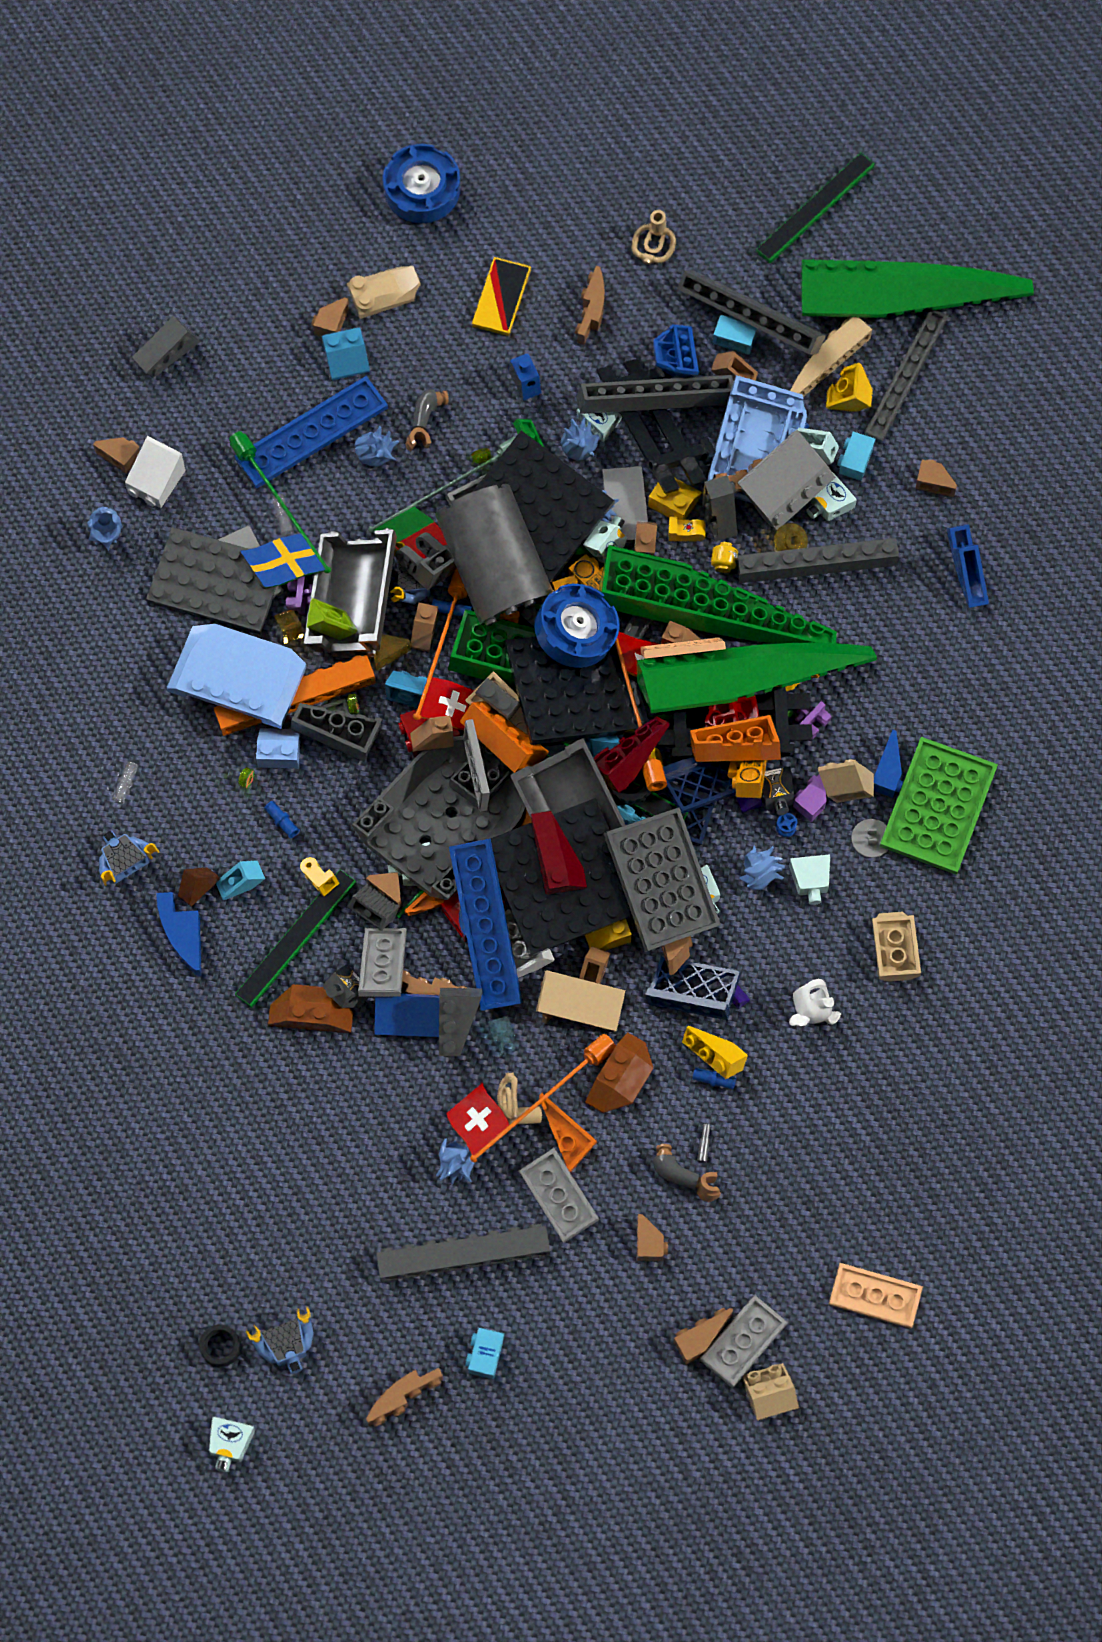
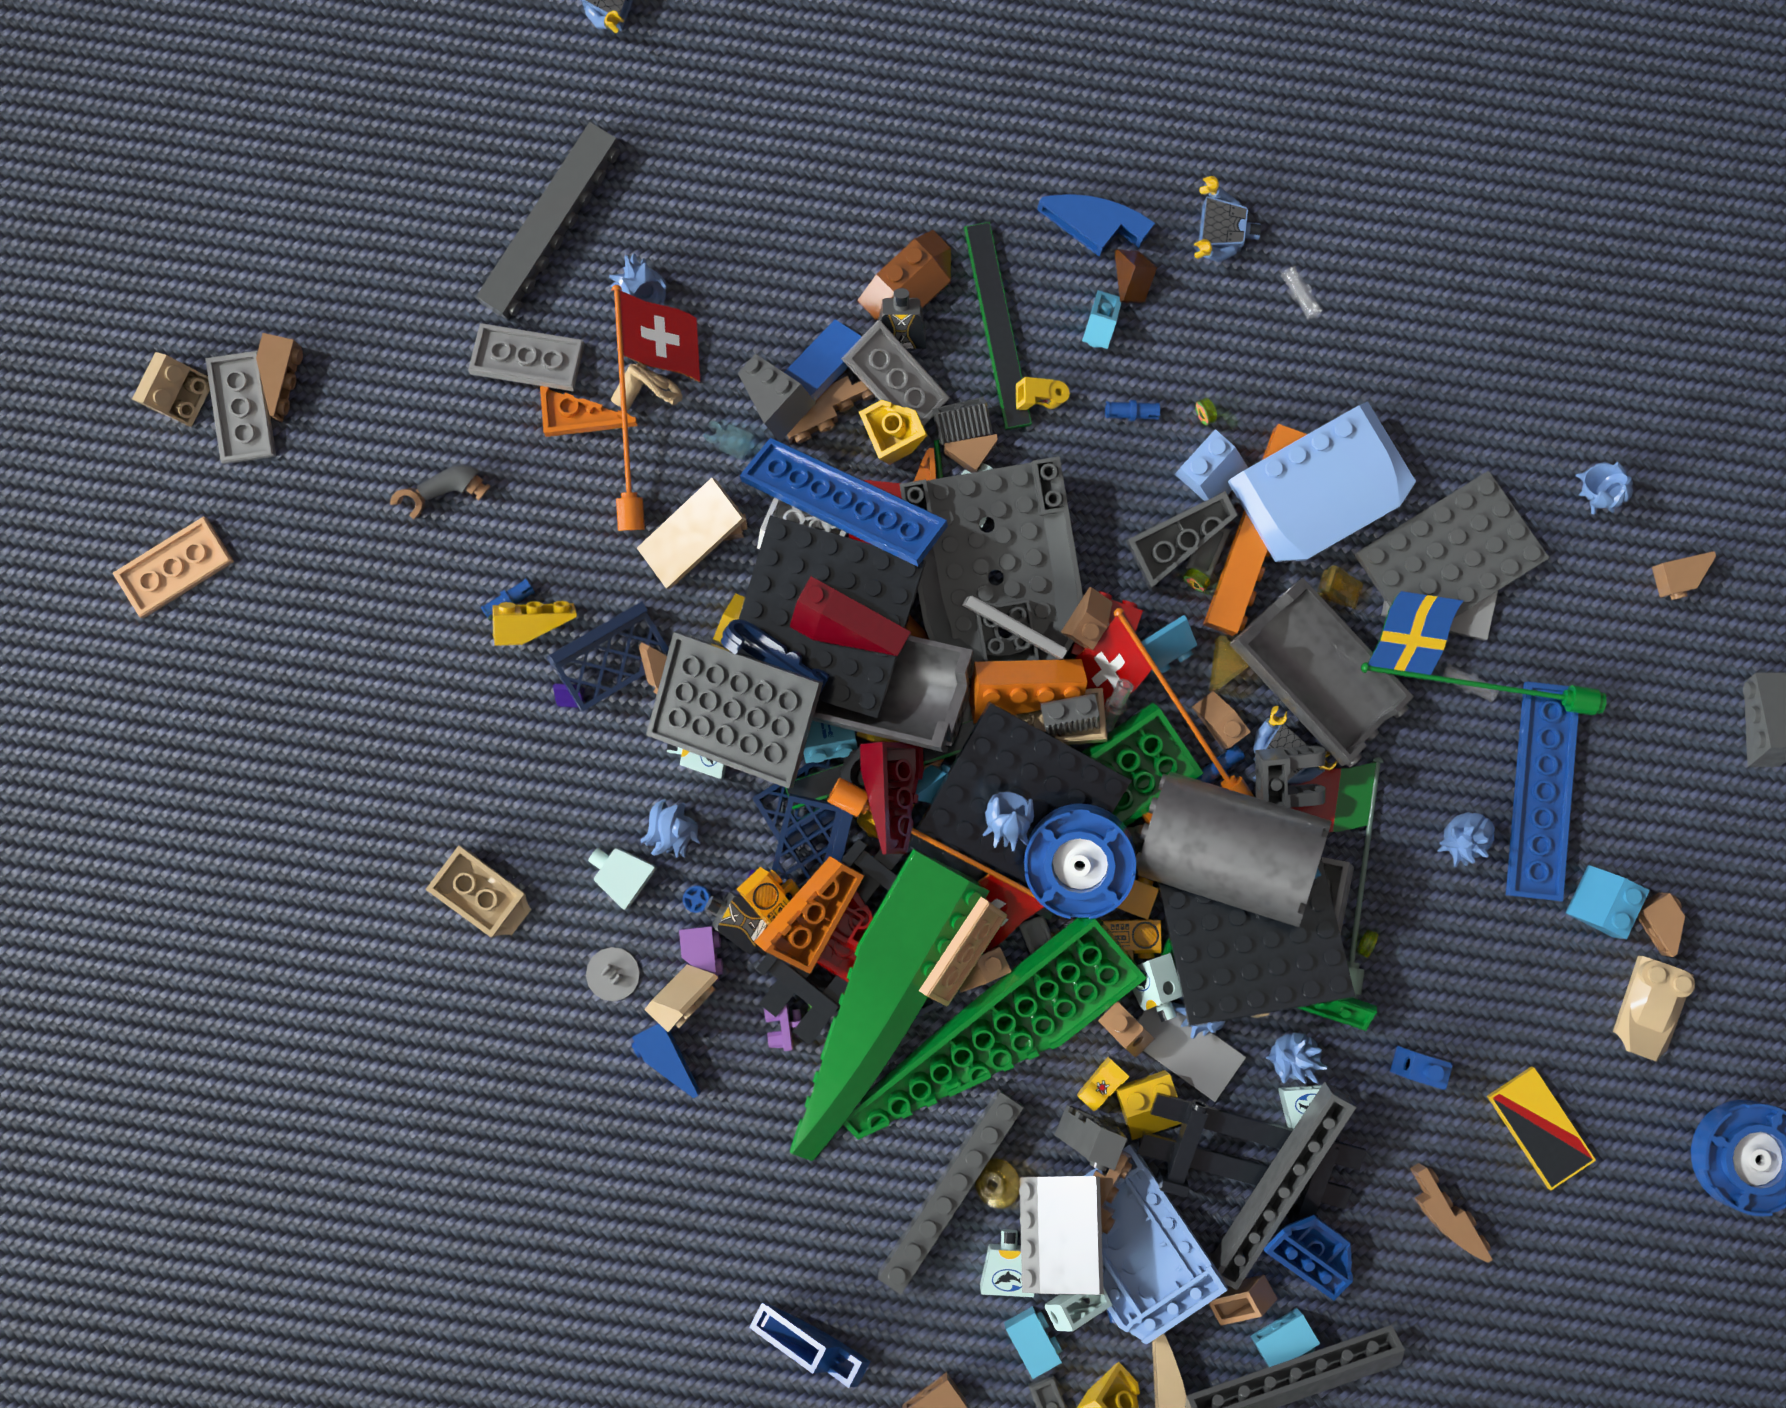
camera: 130 degrees right, 15 degrees up
(155, 472) = (1626, 587): white slope -> none
(302, 596) = (1356, 620): medium lavender hips -> none
(329, 620) = (1309, 628): lime slope -> none
(394, 1400) = (471, 55): medium nougat slope -> none
(415, 937) = (893, 430): none -> yellow slope
(424, 406) = (1476, 935): piece -> none
(467, 684) = (1116, 703): none -> clear pin
(485, 1353) = (438, 163): medium azure brick -> none
(587, 677) = (1009, 818): none -> medium blue hair
(594, 965) = (716, 579): medium nougat slope -> none
(615, 904) = (746, 636): none -> dark blue piece
(621, 1075) = (588, 517): dark orange wedge -> none
(649, 1241) = (406, 401): medium nougat slope -> none
(658, 228) = (1484, 1371): tan piece -> none
(704, 1144) = (455, 535): flat silver pin -> none
(724, 557) = (1037, 1095): yellow head -> none
(813, 1007) = (487, 753): white piece -> none
(938, 805) = (584, 1072): bright green plate -> none

